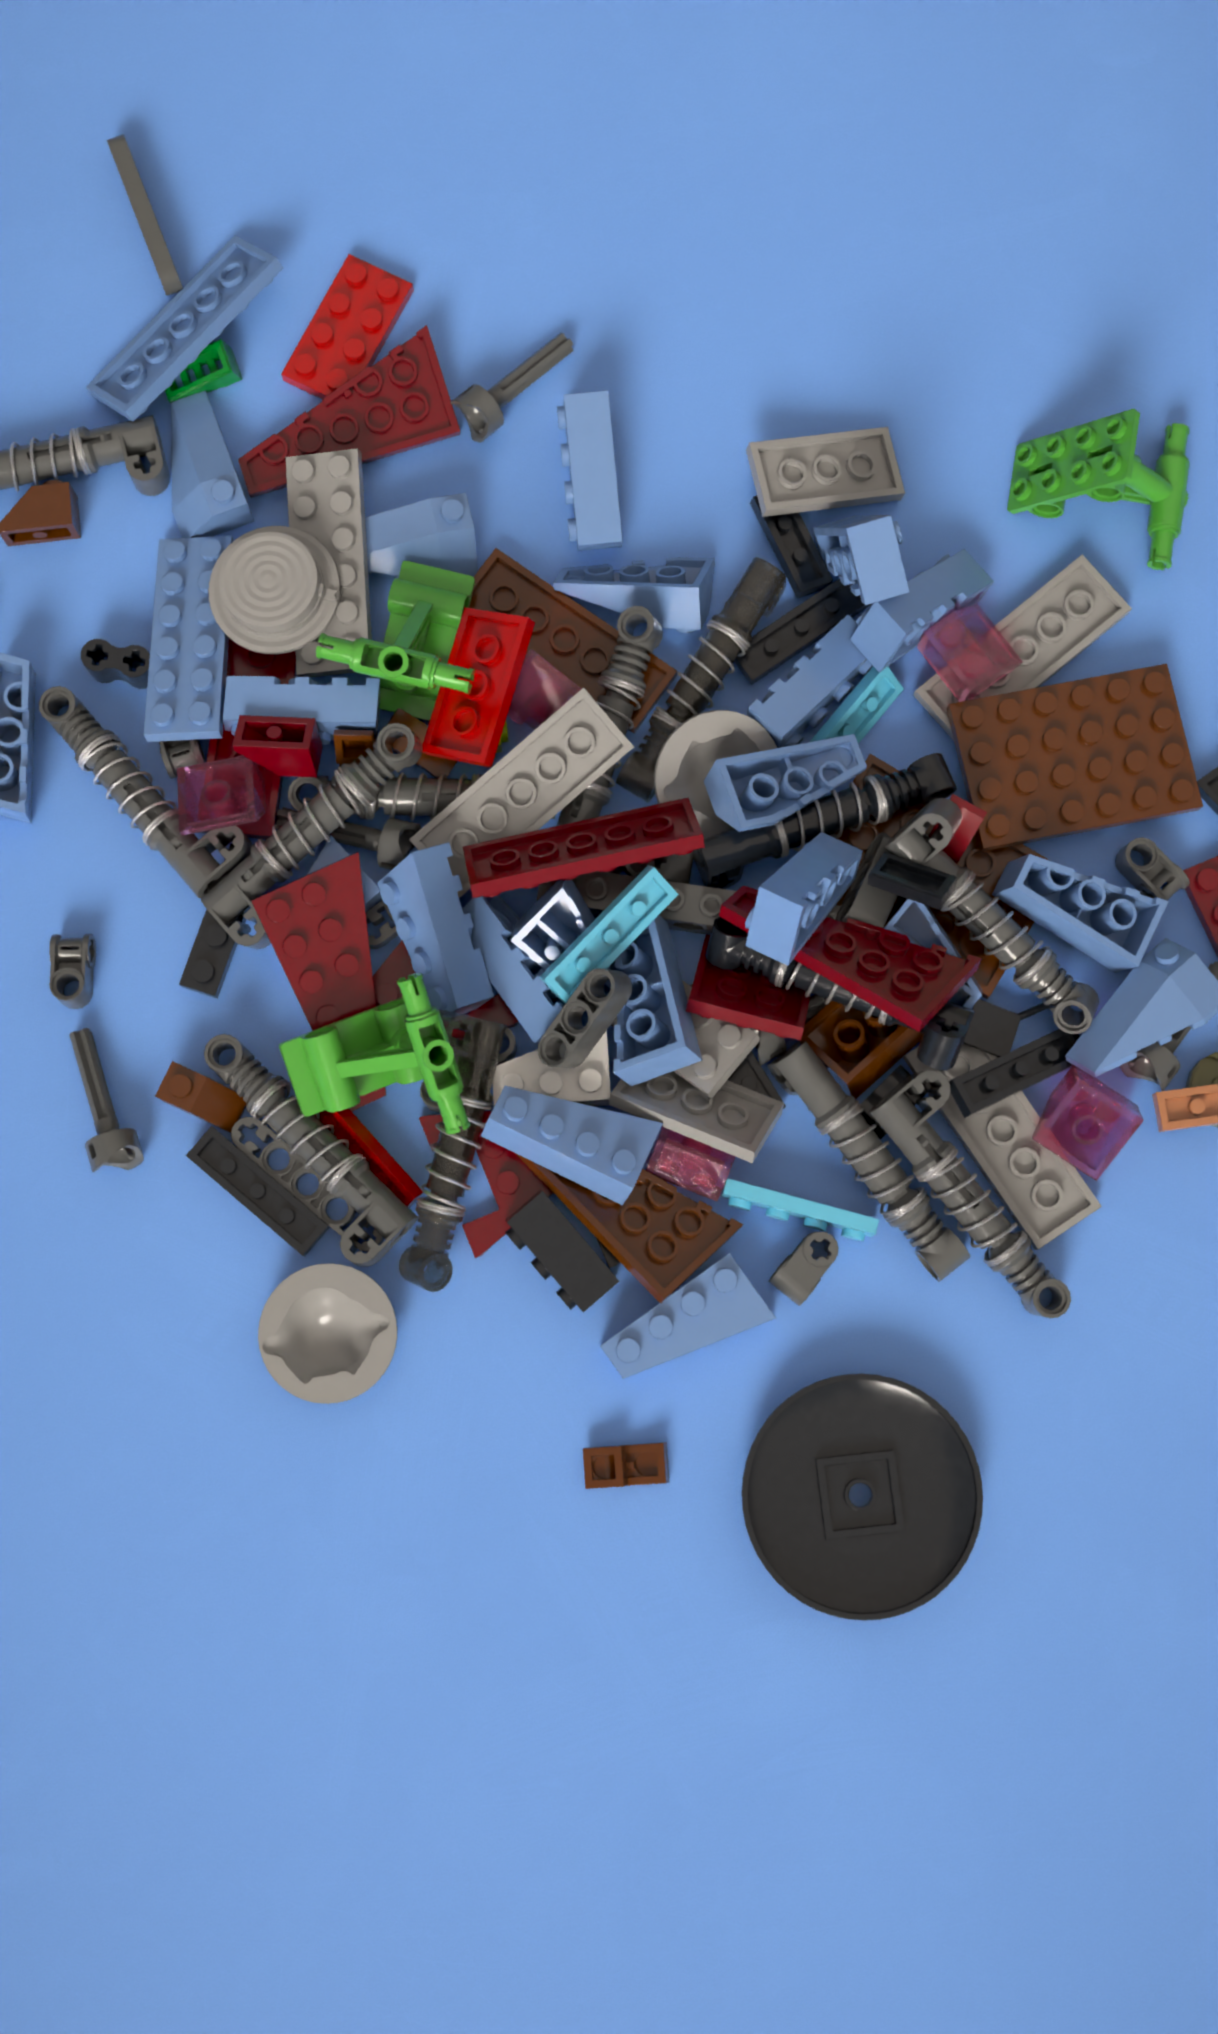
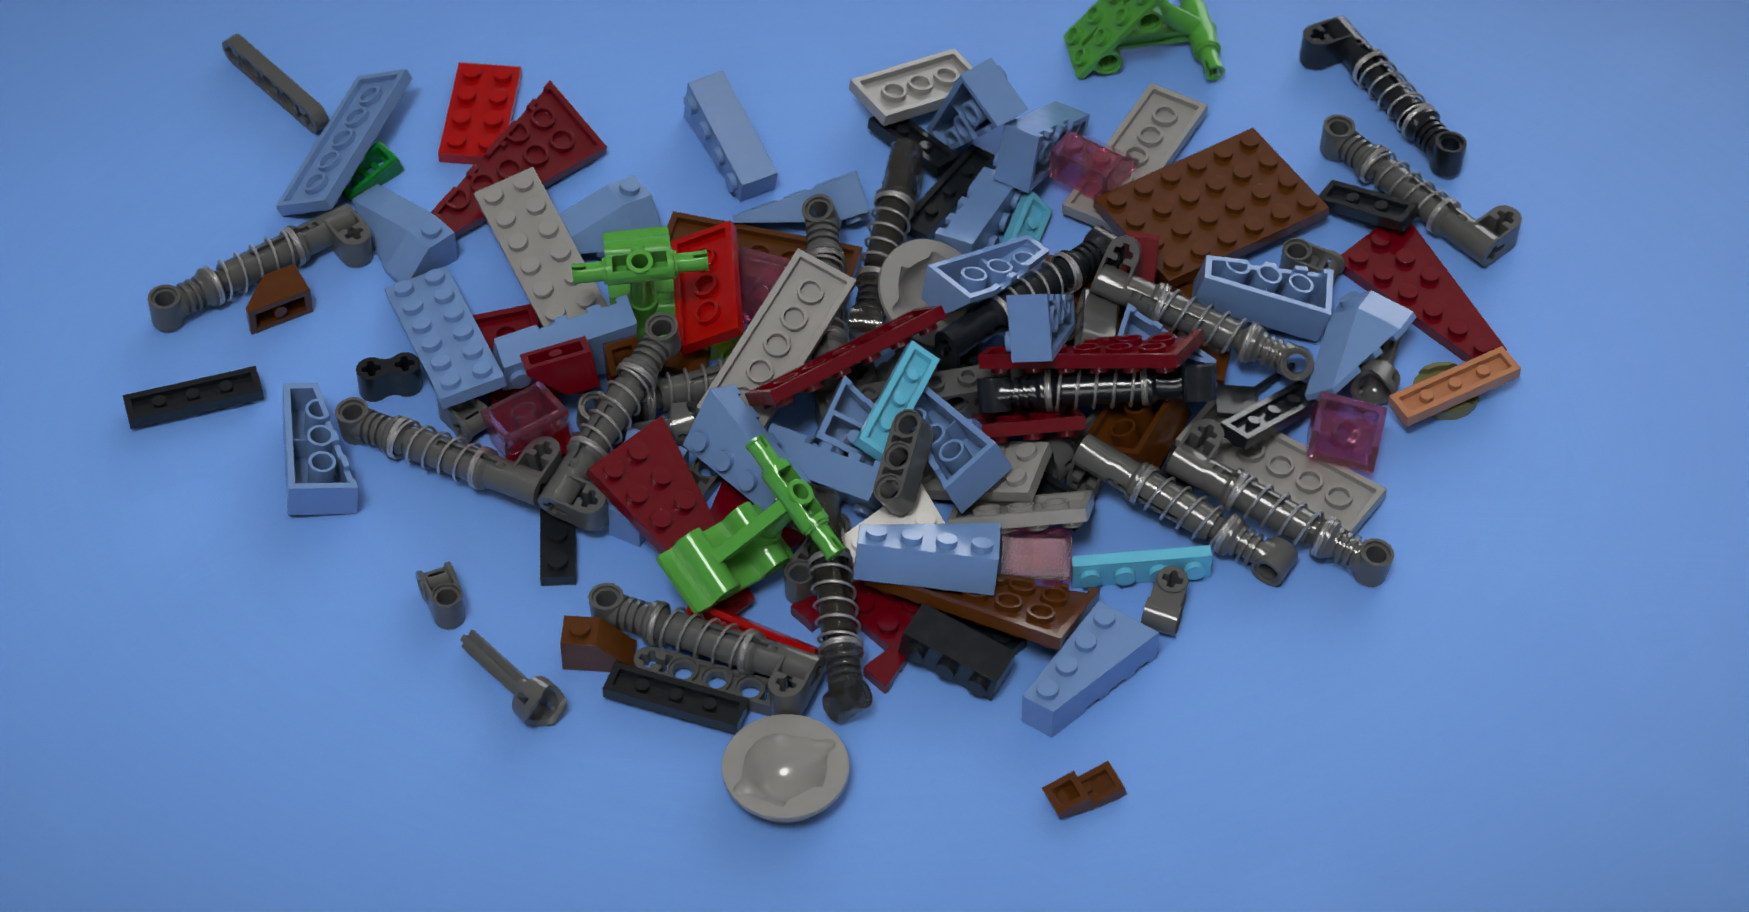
camera: 20 degrees left, 30 degrees down
(274, 590) = (505, 275): light grey piece -> none
(484, 407) = (620, 124): dark grey piece -> none
(912, 880) = (1122, 295): black tile -> none
(920, 1508) = (1298, 696): black dish -> none

